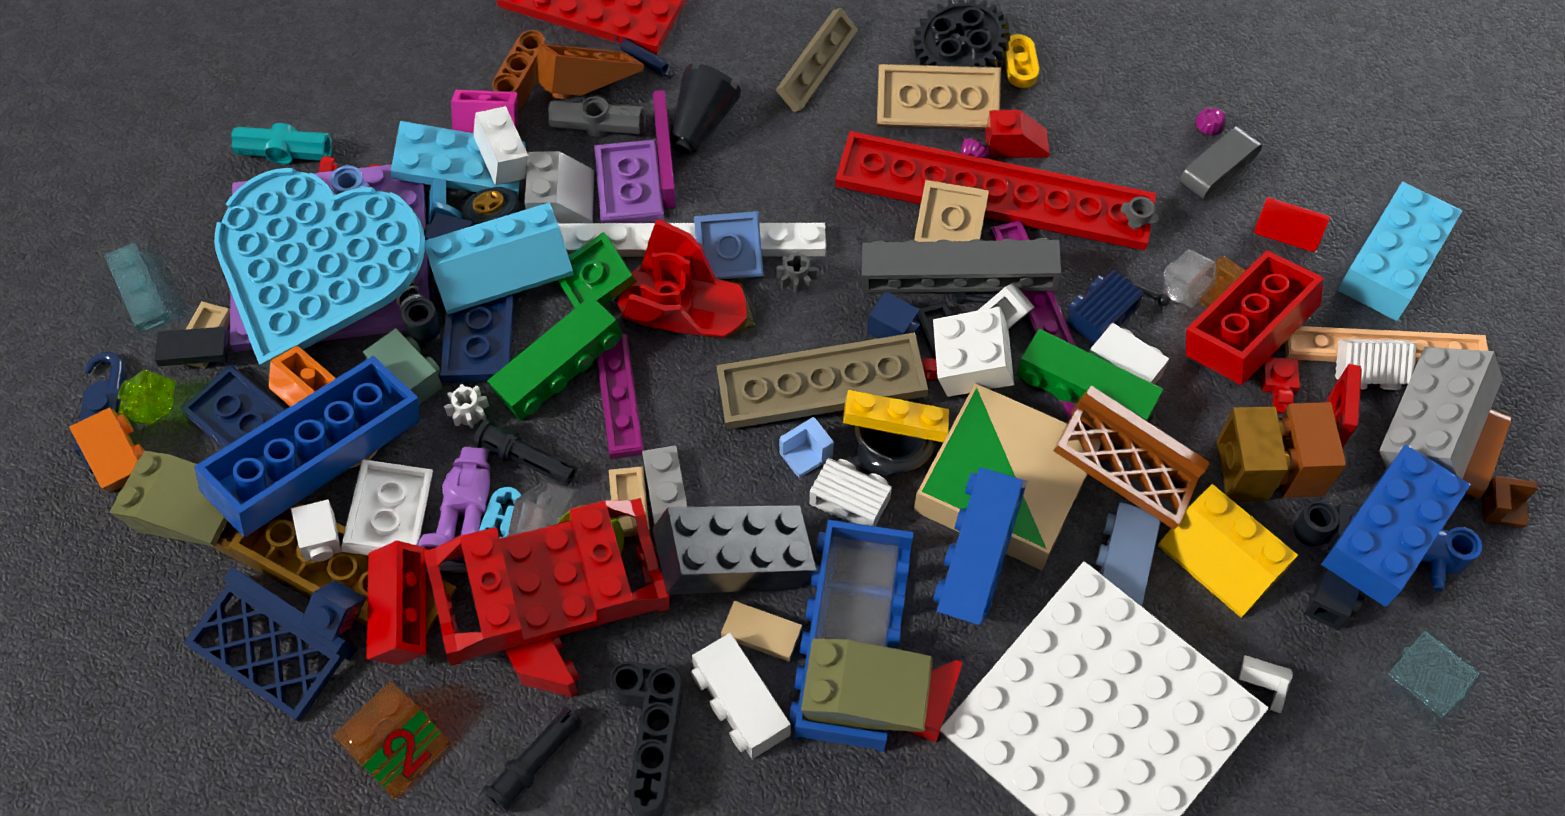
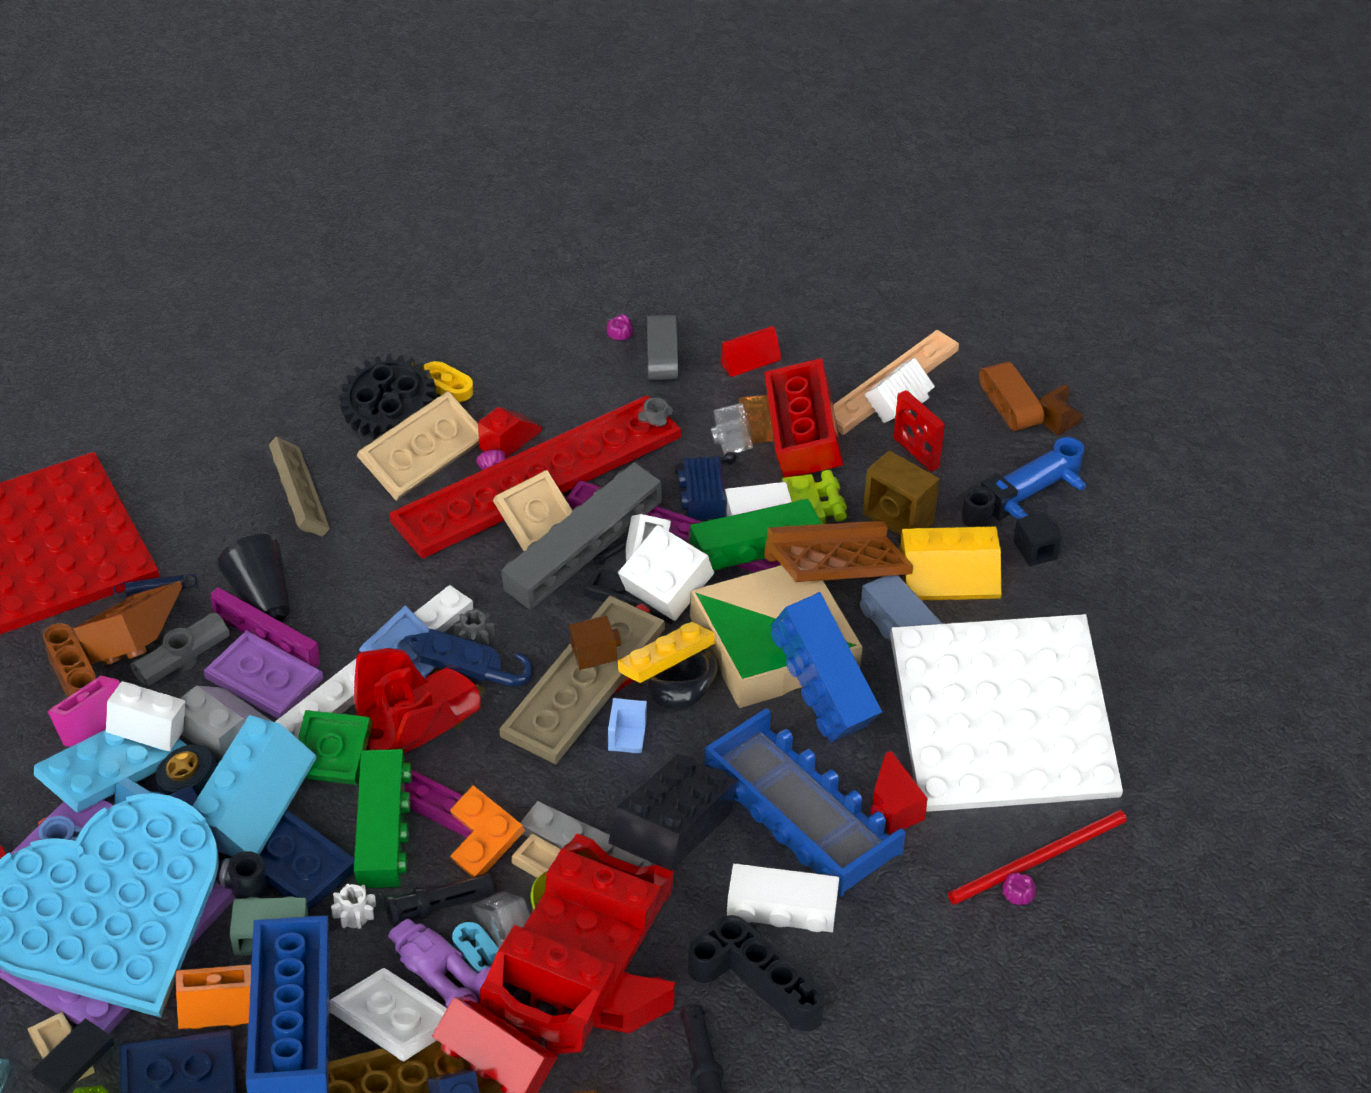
camera: 50 degrees left, 15 degrees down
(316, 531) = (373, 1059): white brick -> none
(614, 438) = (491, 832): none -> orange plate
(762, 291) = (466, 657): none -> dark blue plate
(762, 631) = (752, 849): tan tile -> none
(848, 359) = (594, 642): none -> reddish brown brick
(850, 493) = (691, 726): white brick -> none
(866, 686) = (856, 811): olive slope -> none
(893, 318) = (579, 601): dark blue brick -> none
(1180, 384) = (805, 488): none -> lime plate
(1267, 676) = (1061, 607): white tile -> none
(1281, 379) = (858, 446): red plate -> none
(1313, 449) = (935, 456): dark orange slope -> none
(1396, 525) = (1028, 463): blue brick -> none
(1399, 251) = (834, 317): medium azure brick -> none
(1433, 673) = (1132, 536): clear light blue piece -> none
(1445, 407) = (973, 388): light grey brick -> none

